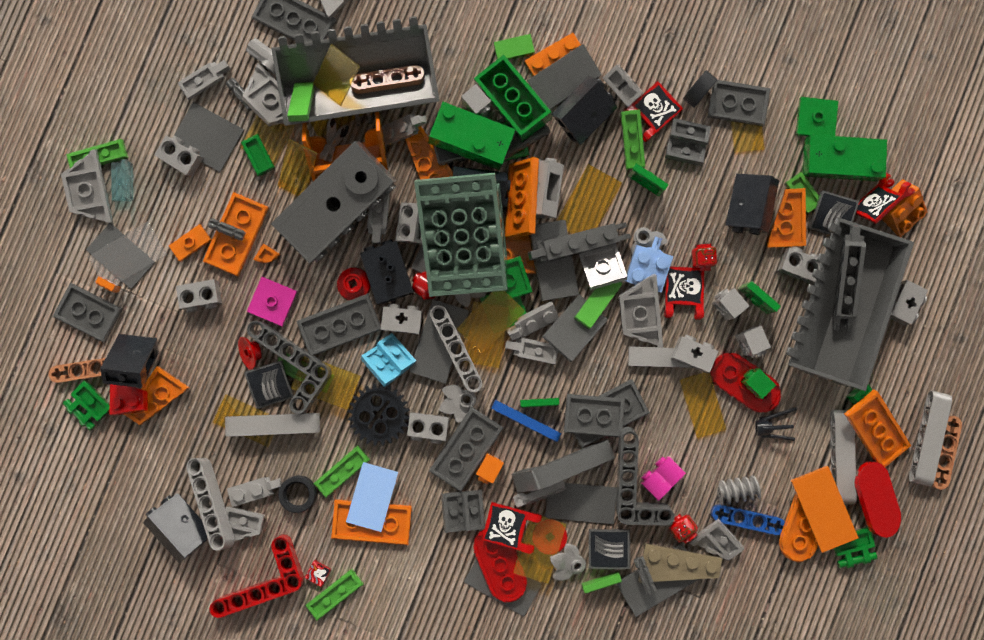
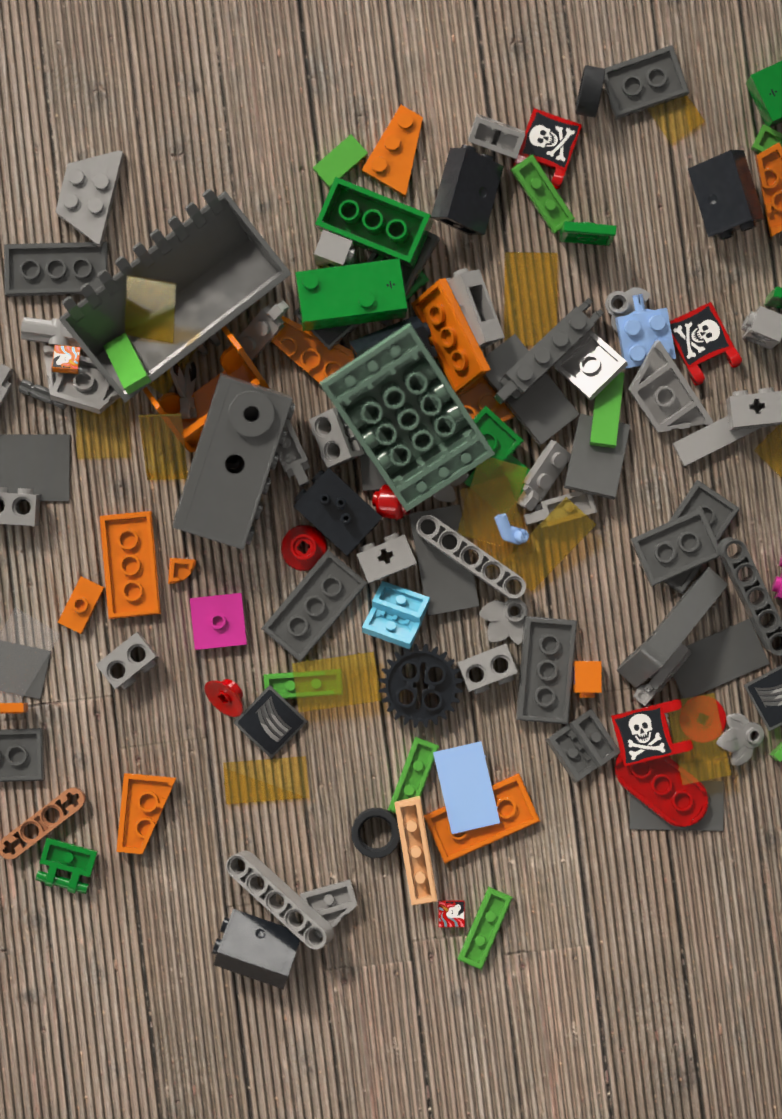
camera: 25 degrees left, 0 degrees up
(127, 400) = (110, 831): red wing -> none
(129, 360) = (91, 782): black piece -> none
(226, 229) = (117, 564): dark grey axle -> none
(252, 490) = (320, 858): light grey hinge -> none
(258, 155) = (104, 455): green tile -> none
(265, 79) = (66, 359): none -> tile
(265, 587) = (398, 963): red beam -> none
(272, 424) = (300, 766): light grey beam -> none
(295, 359) = (286, 674): dark grey beam -> none
(316, 520) = (416, 851): none -> light nougat slope
(387, 76) = (214, 284): nougat beam -> none
(490, 347) = (510, 533): none -> light blue arm
(512, 368) = (549, 543): none -> clear yellow piece
(526, 420) = (599, 597): blue beam -> none
(539, 402) = (603, 567): green tile -> none
(564, 76) = (420, 163): dark grey window -> none
(687, 142) = (609, 162): dark grey slope -> none
(704, 257) = (704, 288): red head -> none
(816, 117) = (746, 49): green plate -> none

